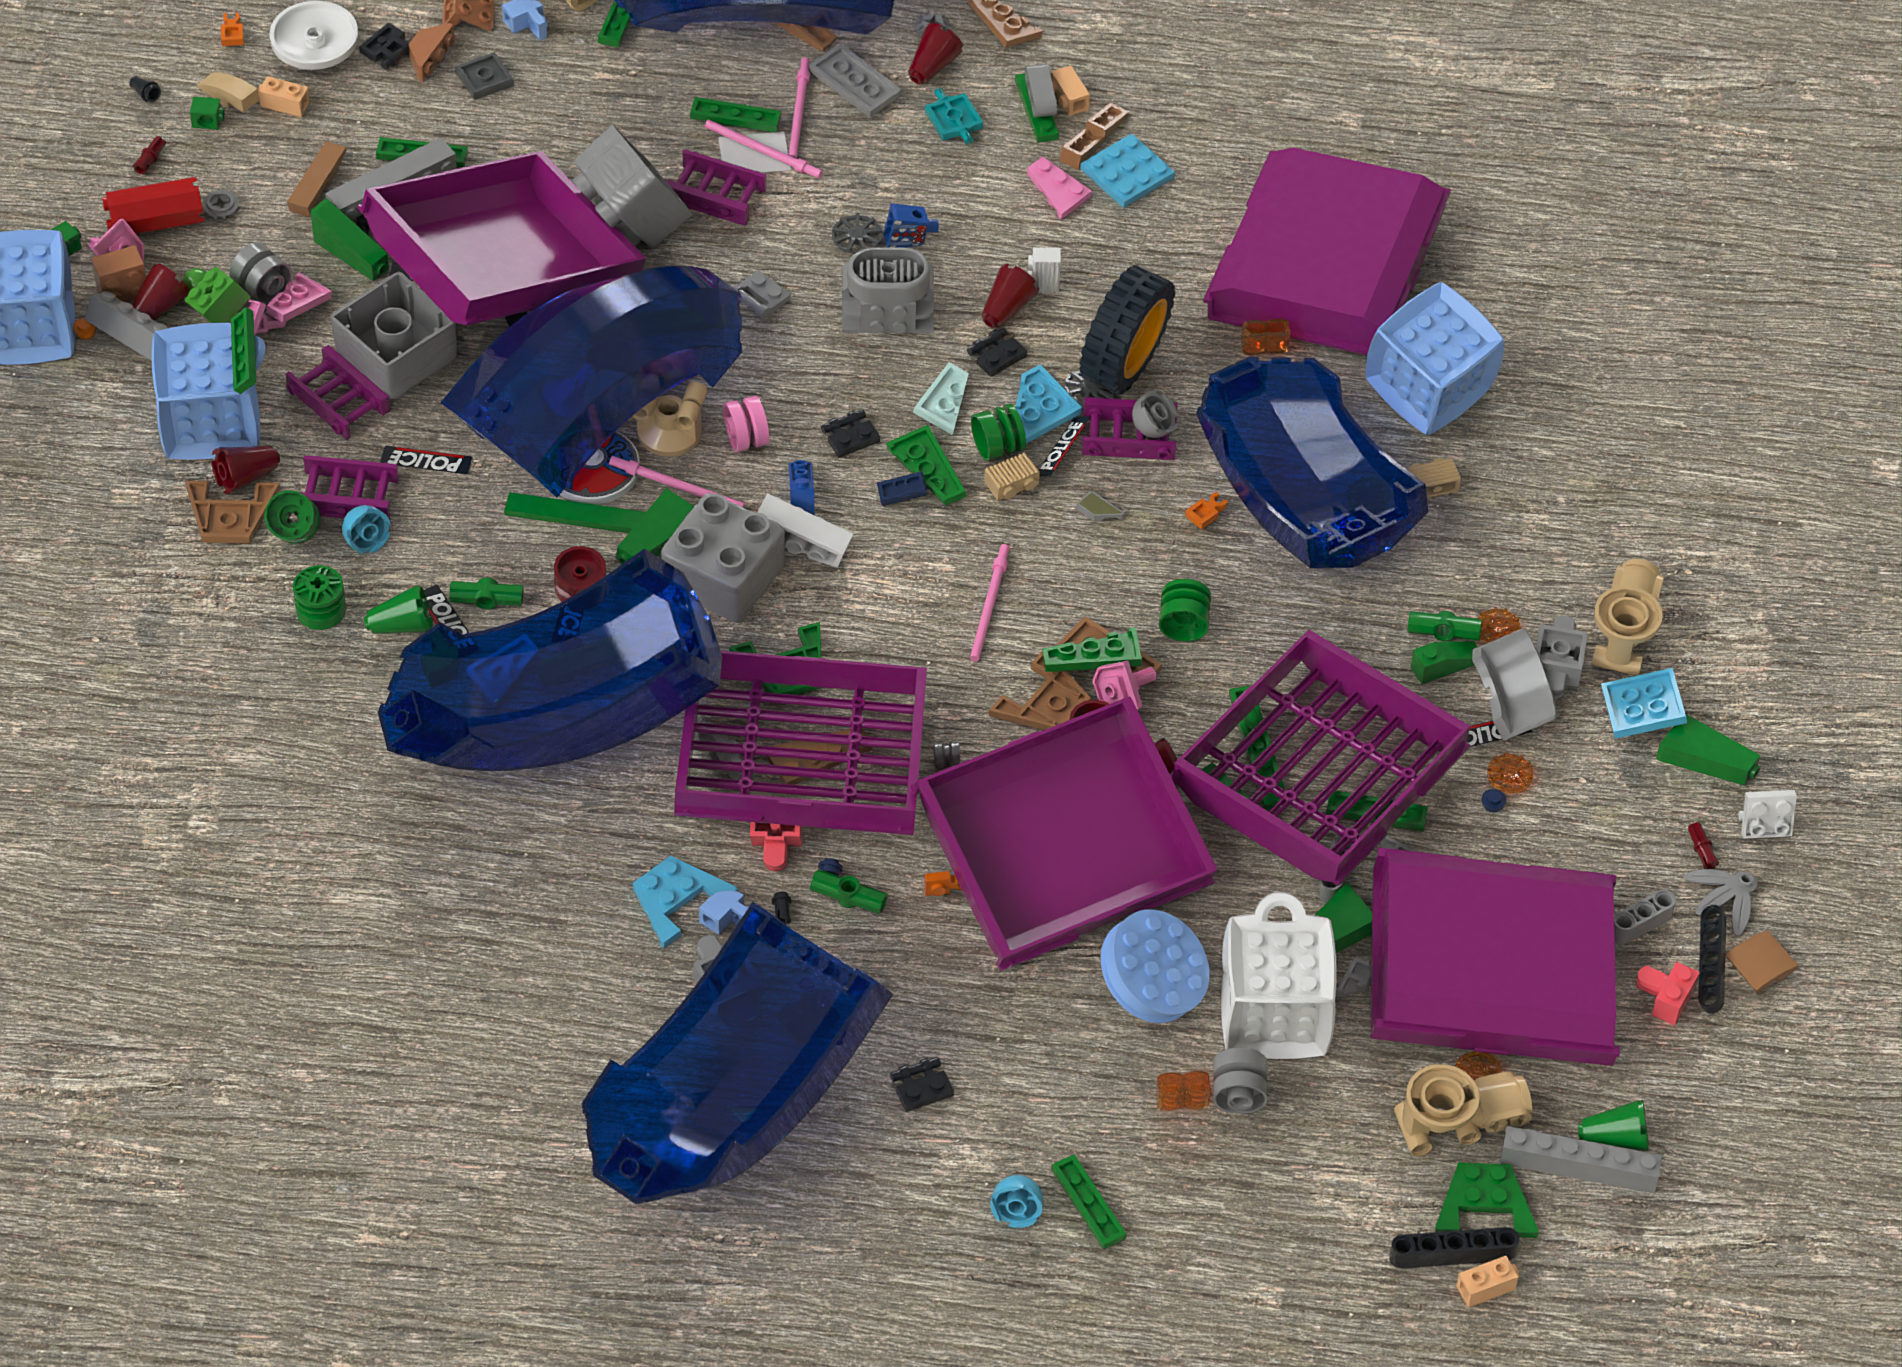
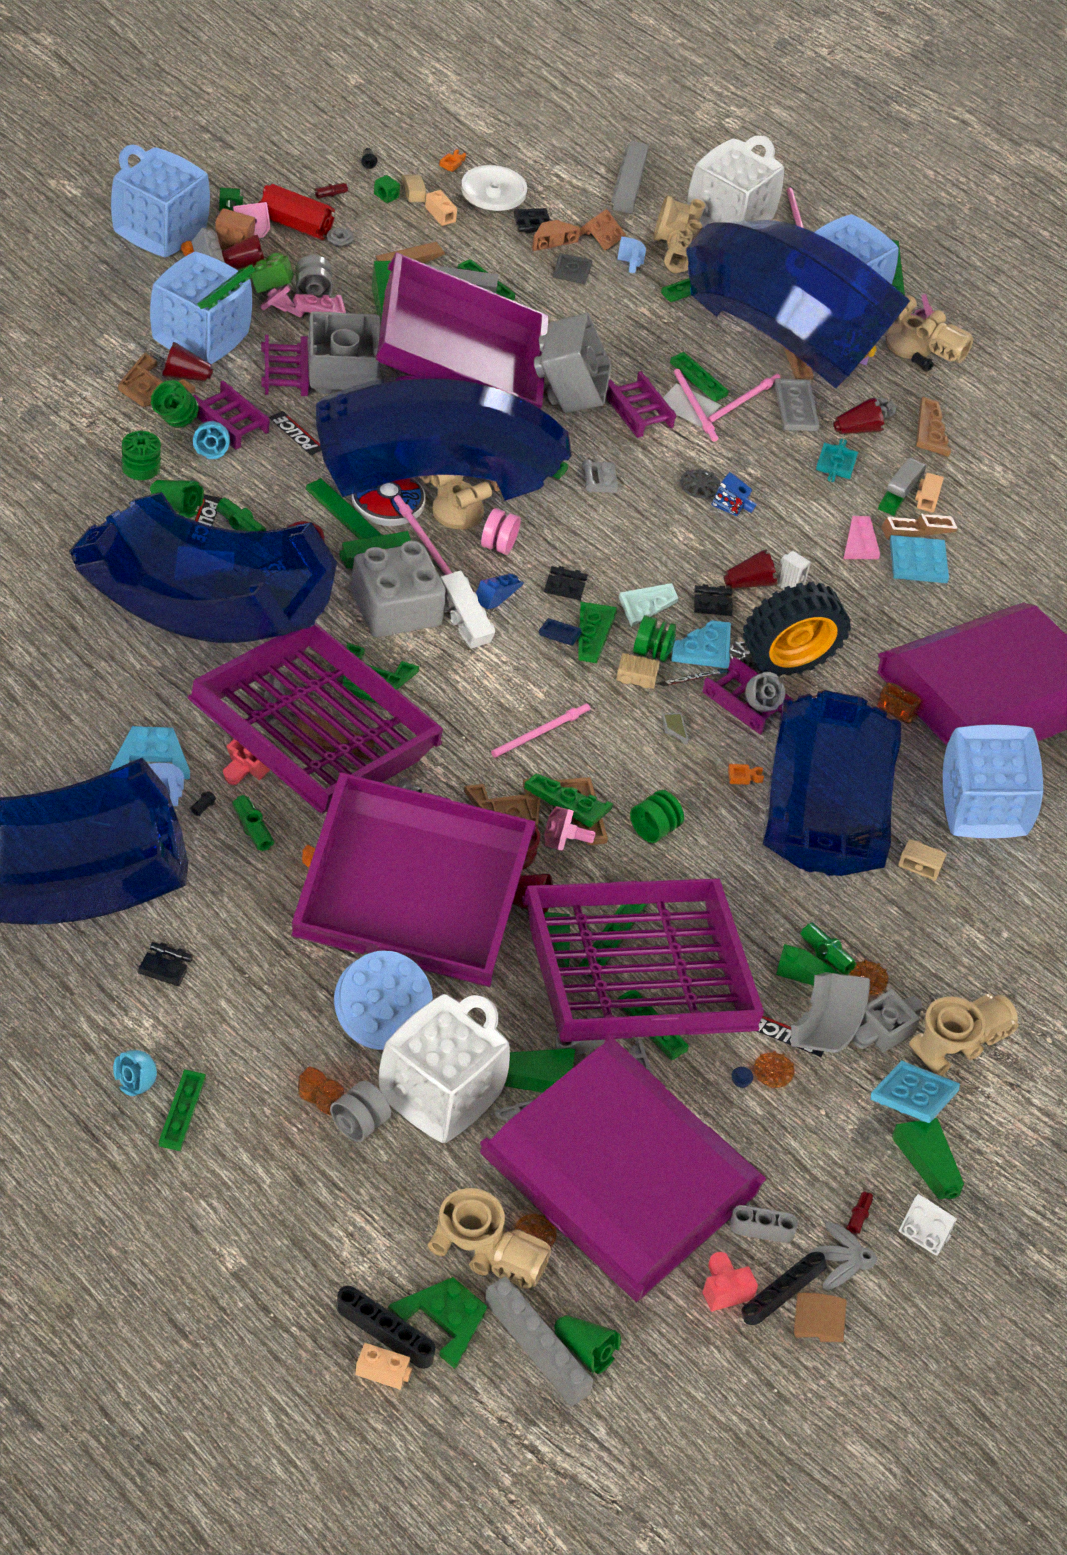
camera: 35 degrees right, 5 degrees down
(831, 866) = (259, 802): dark blue plate -> none
(887, 292) = (675, 519): light grey brick -> none

